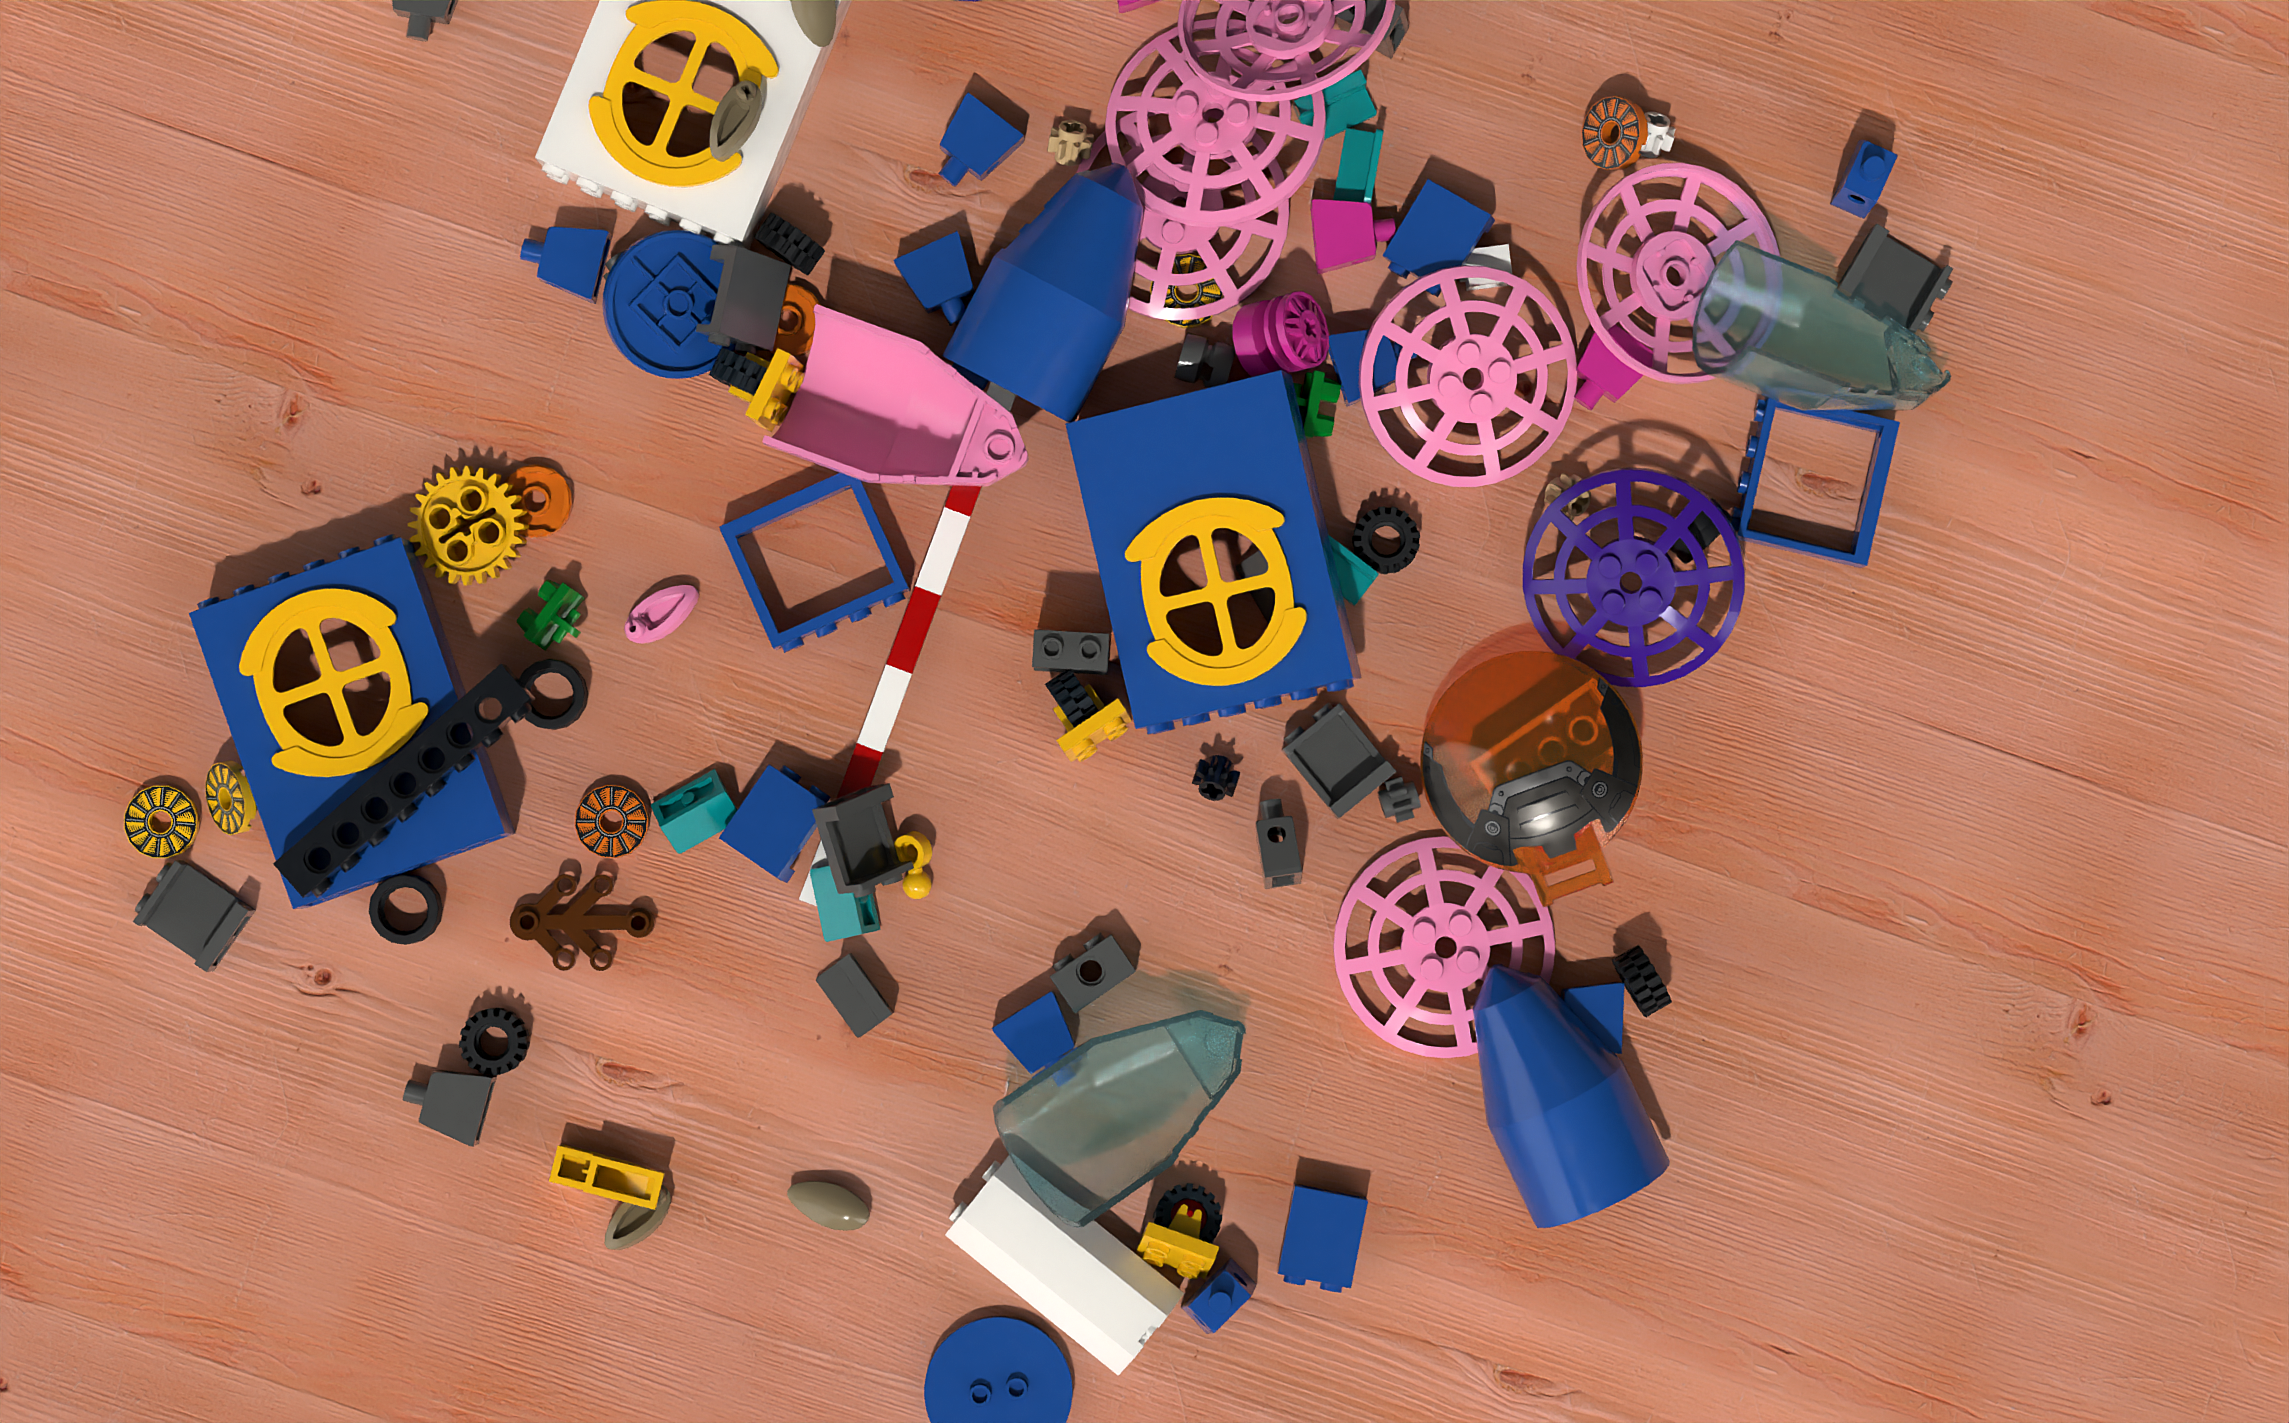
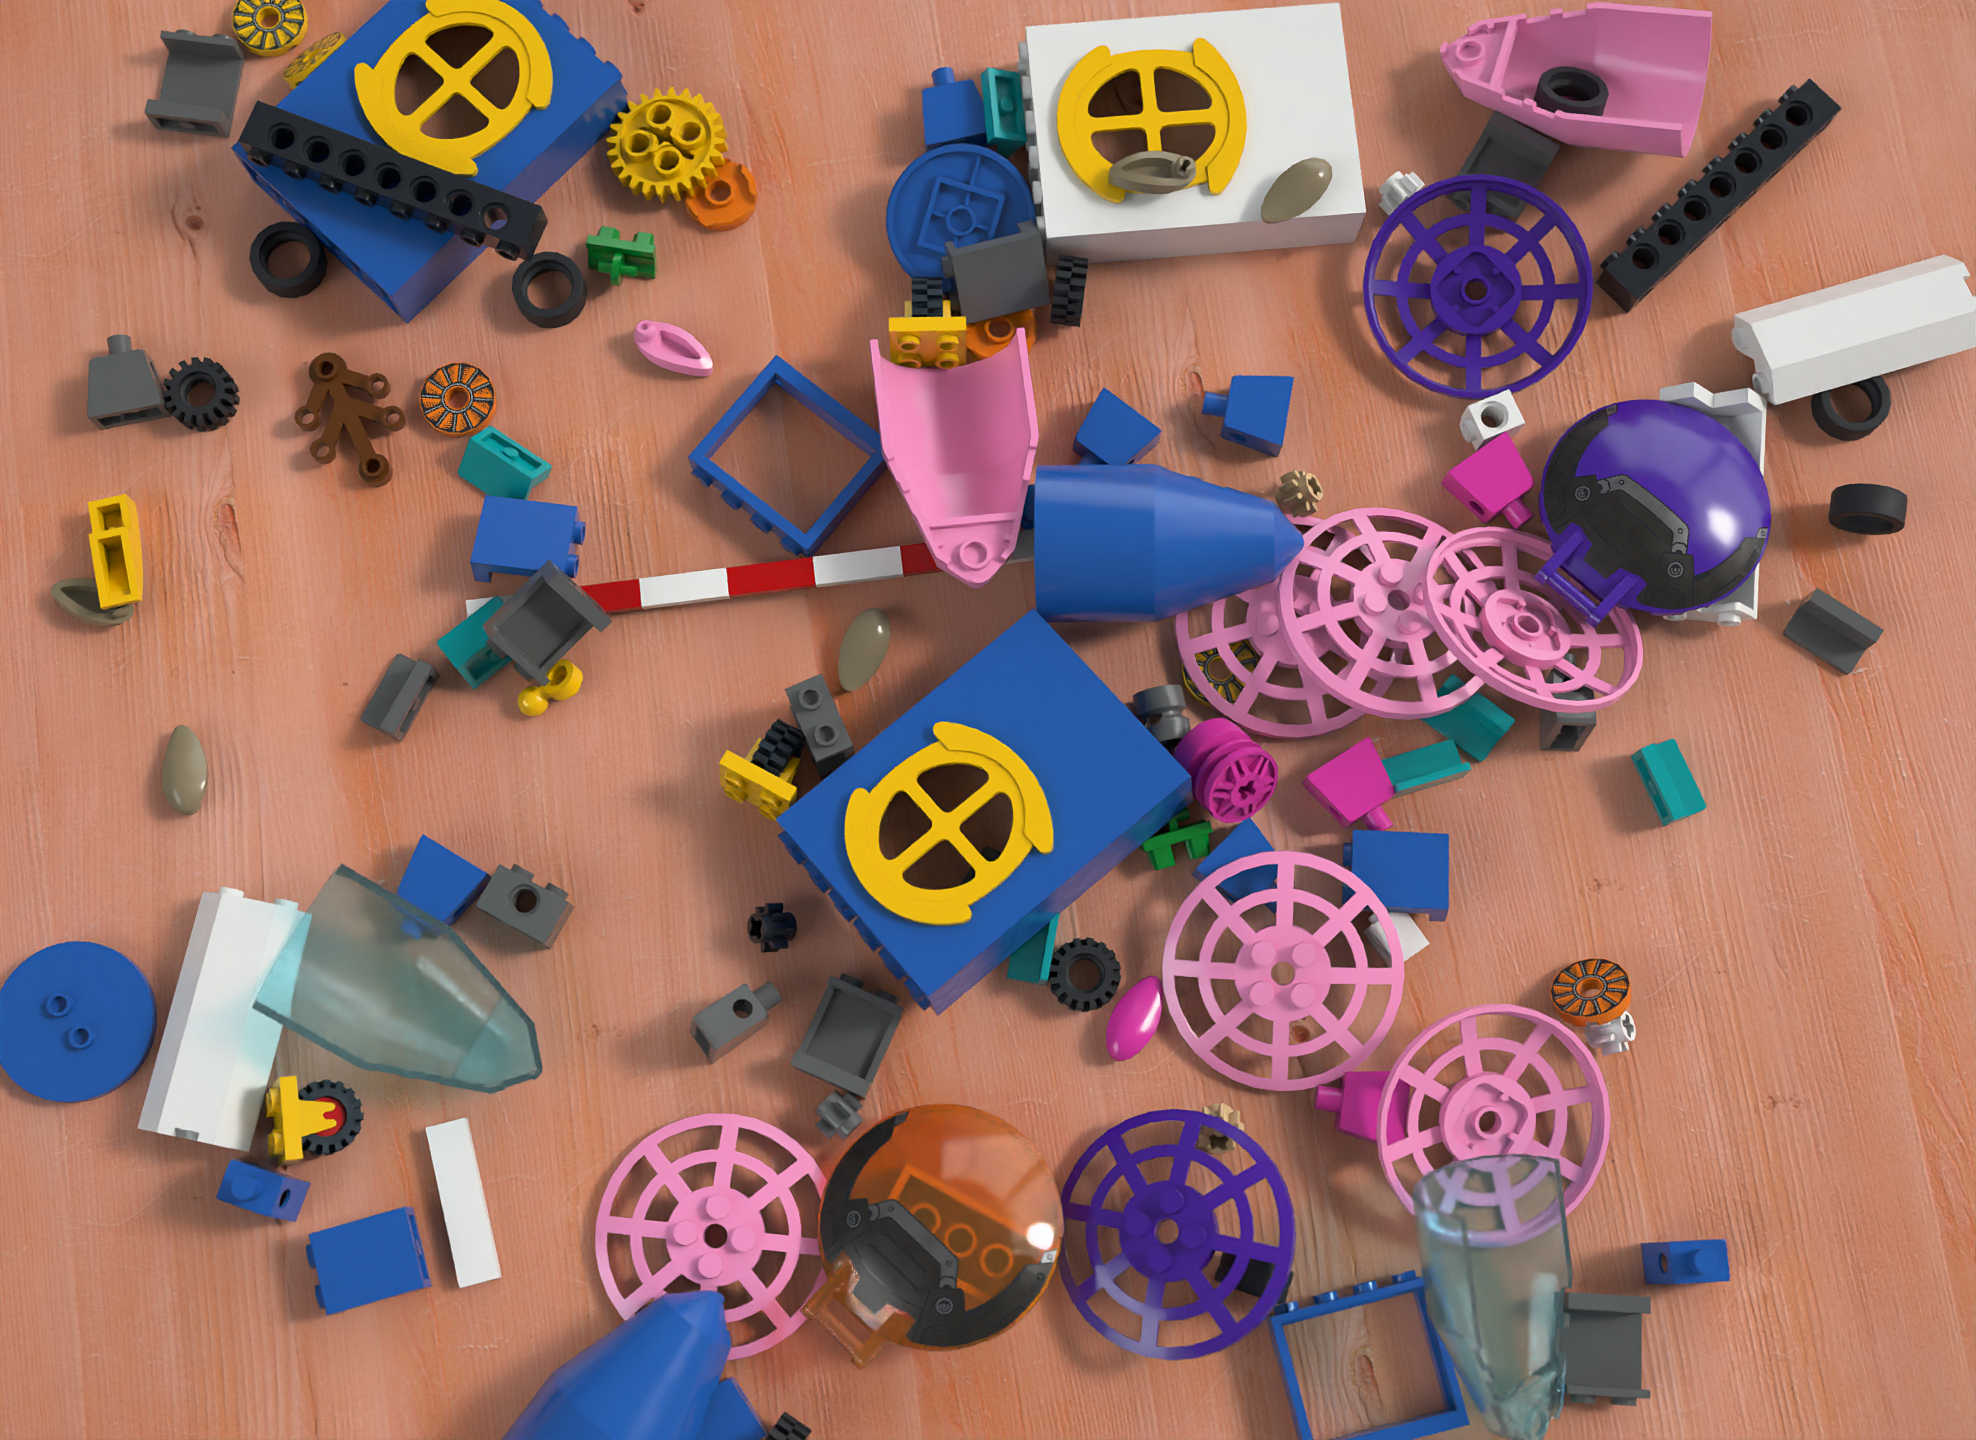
camera: 65 degrees right, 10 degrees down
(592, 213) = (1003, 110): none -> teal panel
(1015, 582) = (863, 648): none -> dark tan arm
(1312, 1139) = (463, 1202): none -> white tile
(1443, 517) = (1134, 1019): none -> dark pink arm

